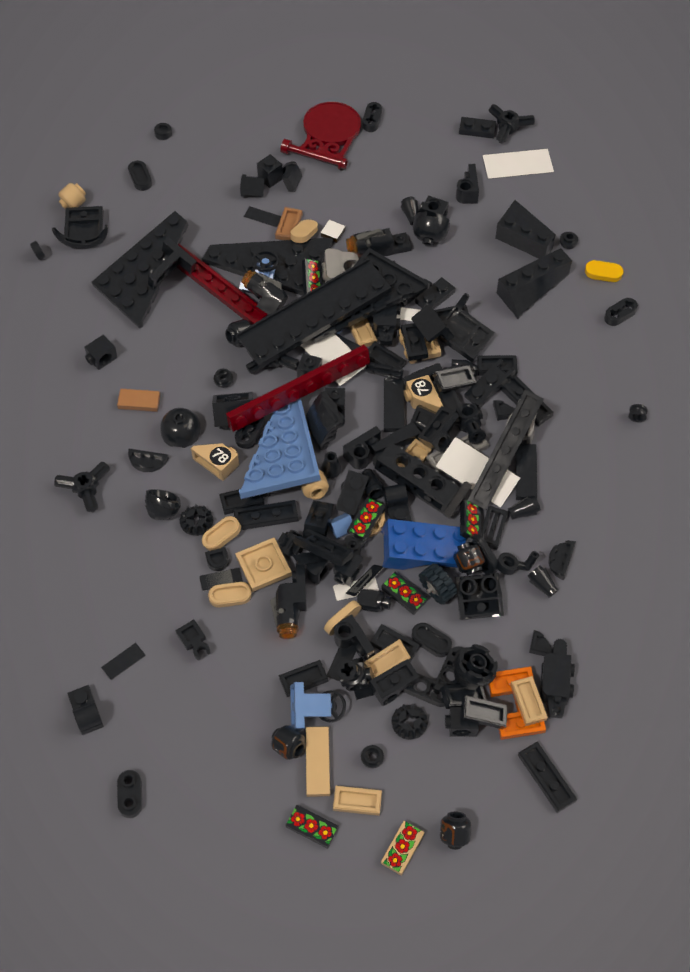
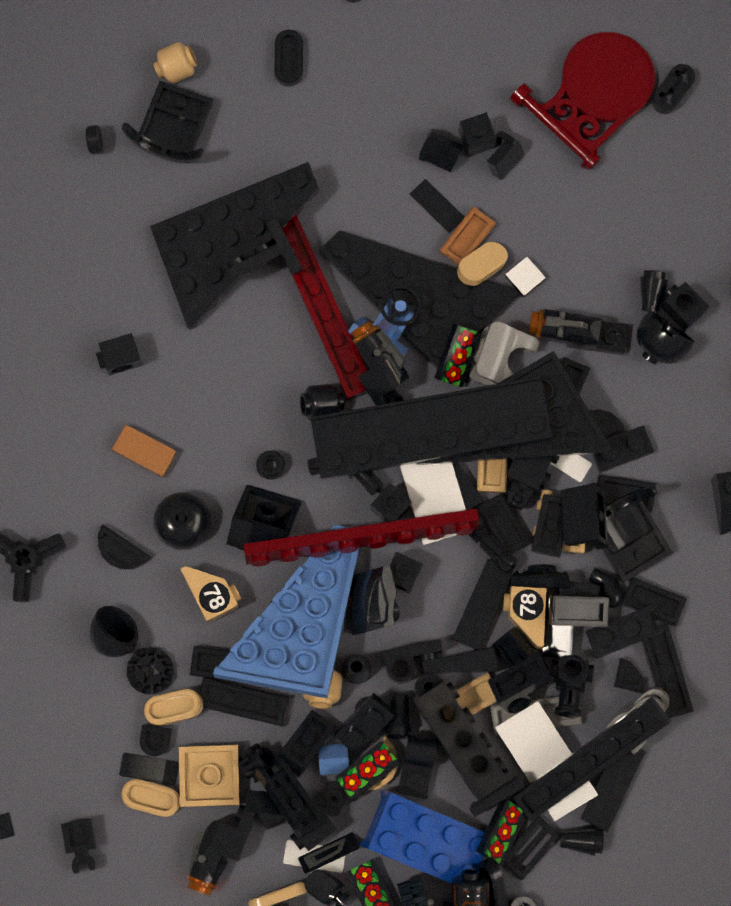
camera: 20 degrees right, 20 degrees up
(249, 432) = (274, 570): black plate -> none

